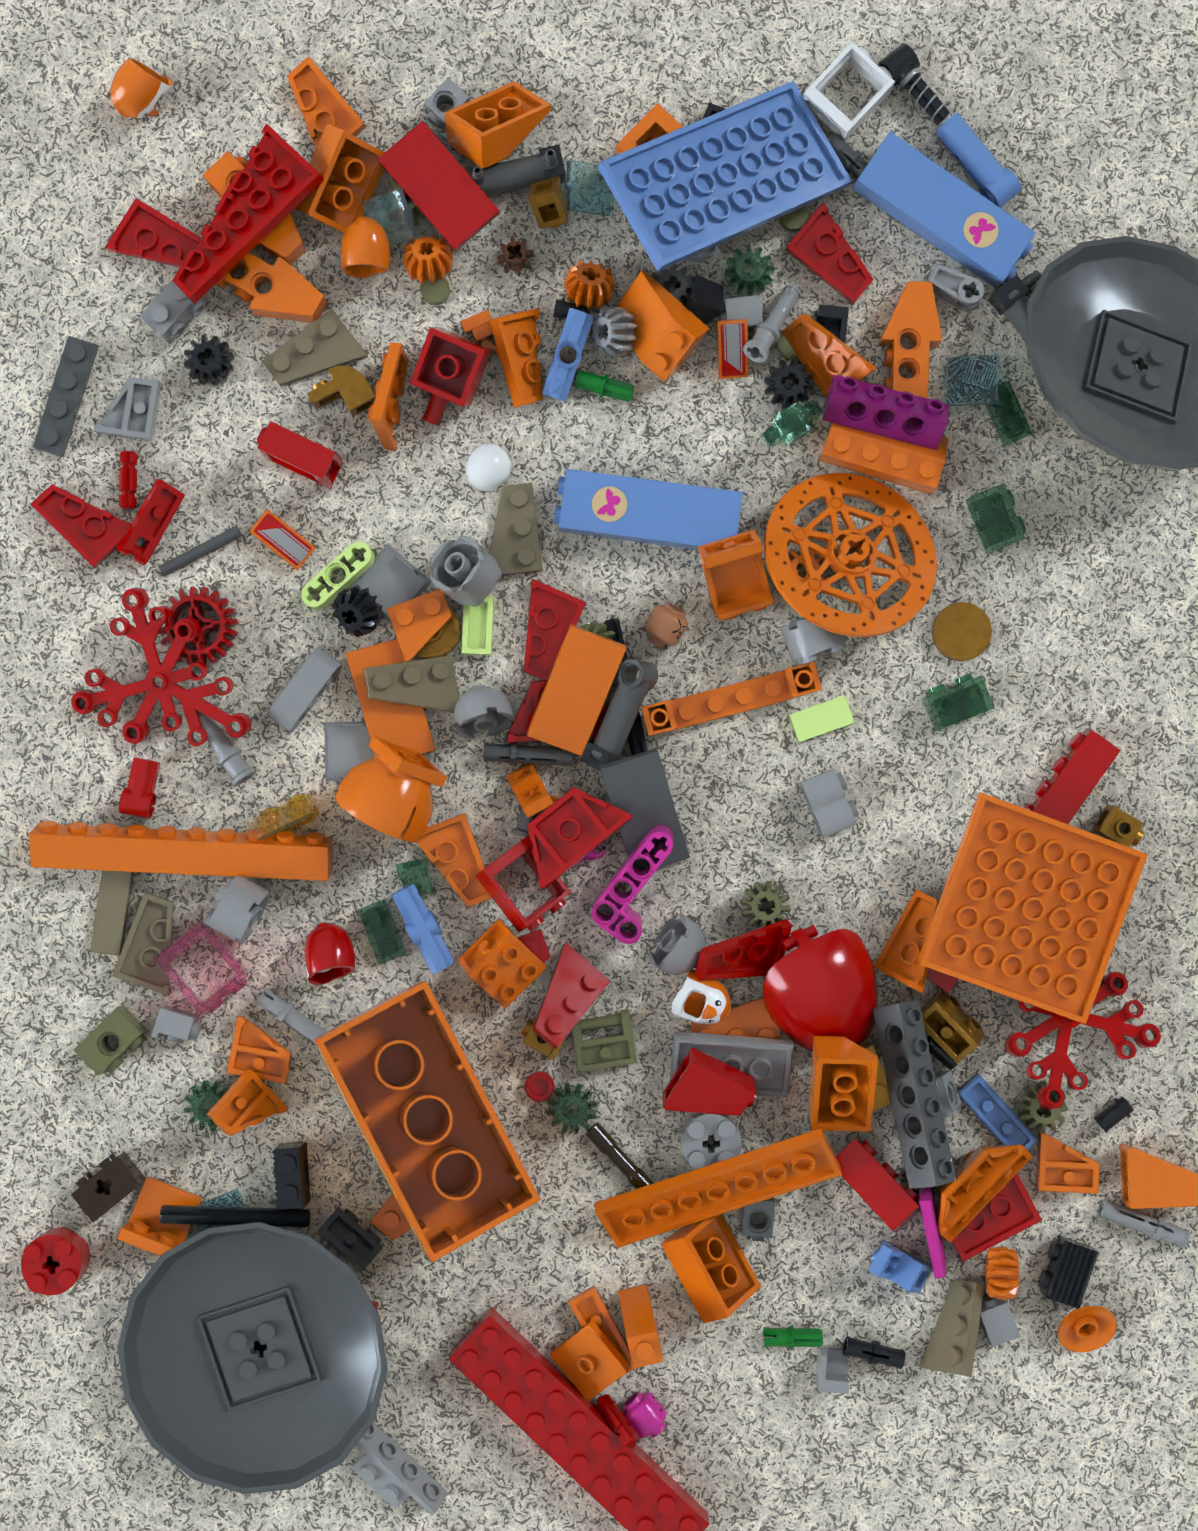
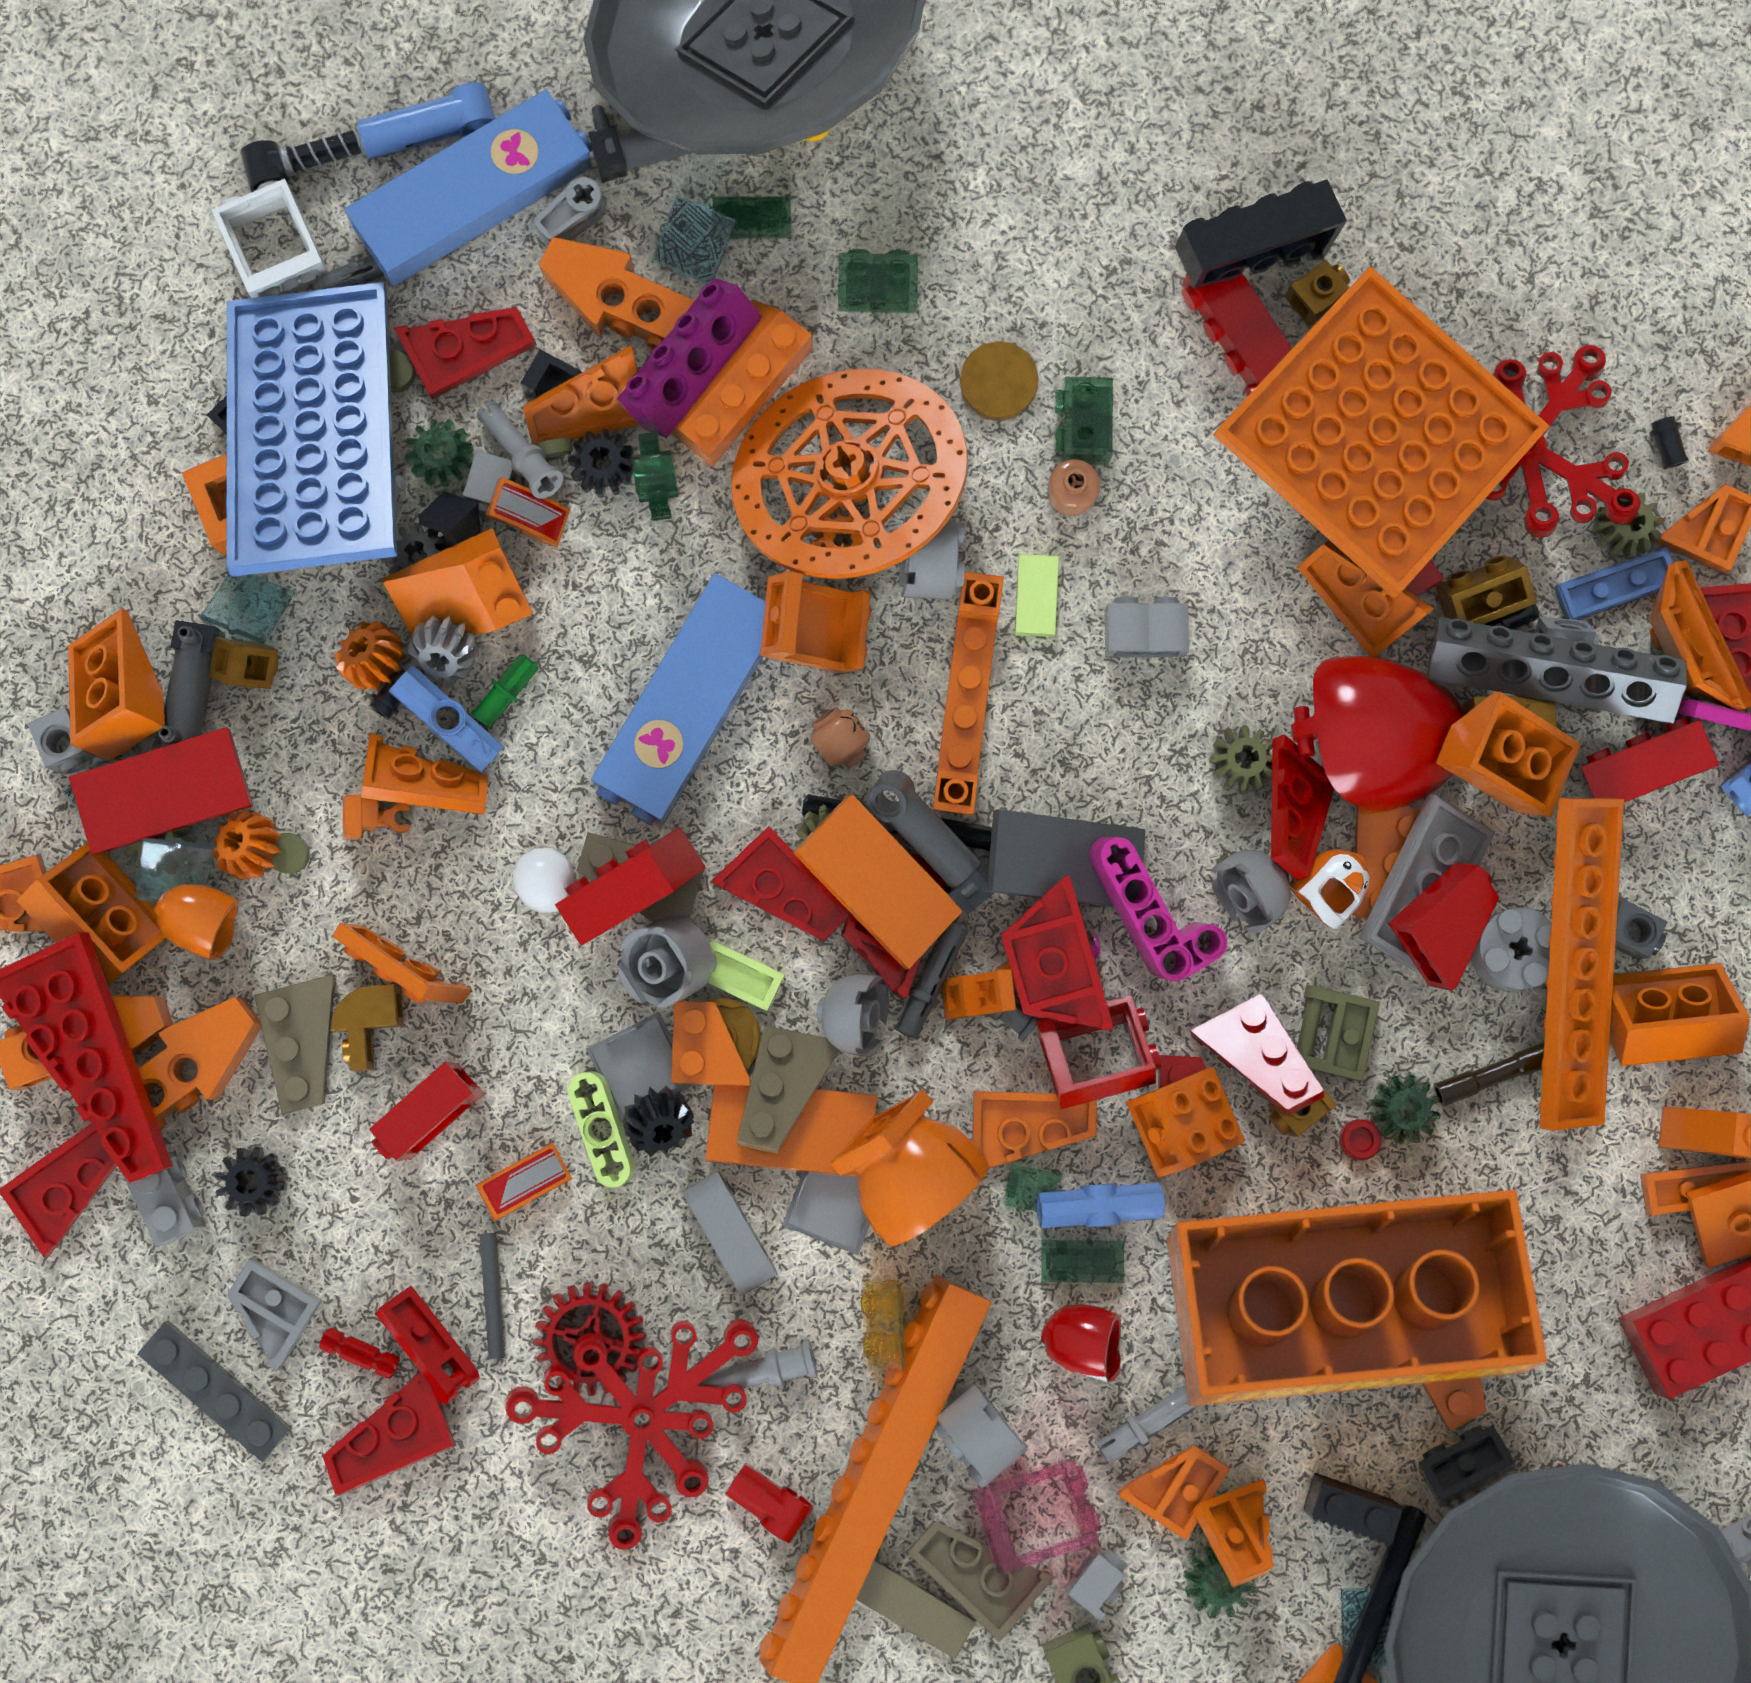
camera: 70 degrees left, 5 degrees down
(449, 371) = (402, 877): red brick -> none
(505, 526) = (629, 886): none -> red wedge
(515, 264) = (302, 734): reddish brown gear -> none
(896, 710) = (1067, 498): none -> nougat head
(1139, 769) = (1261, 234): none -> black wedge

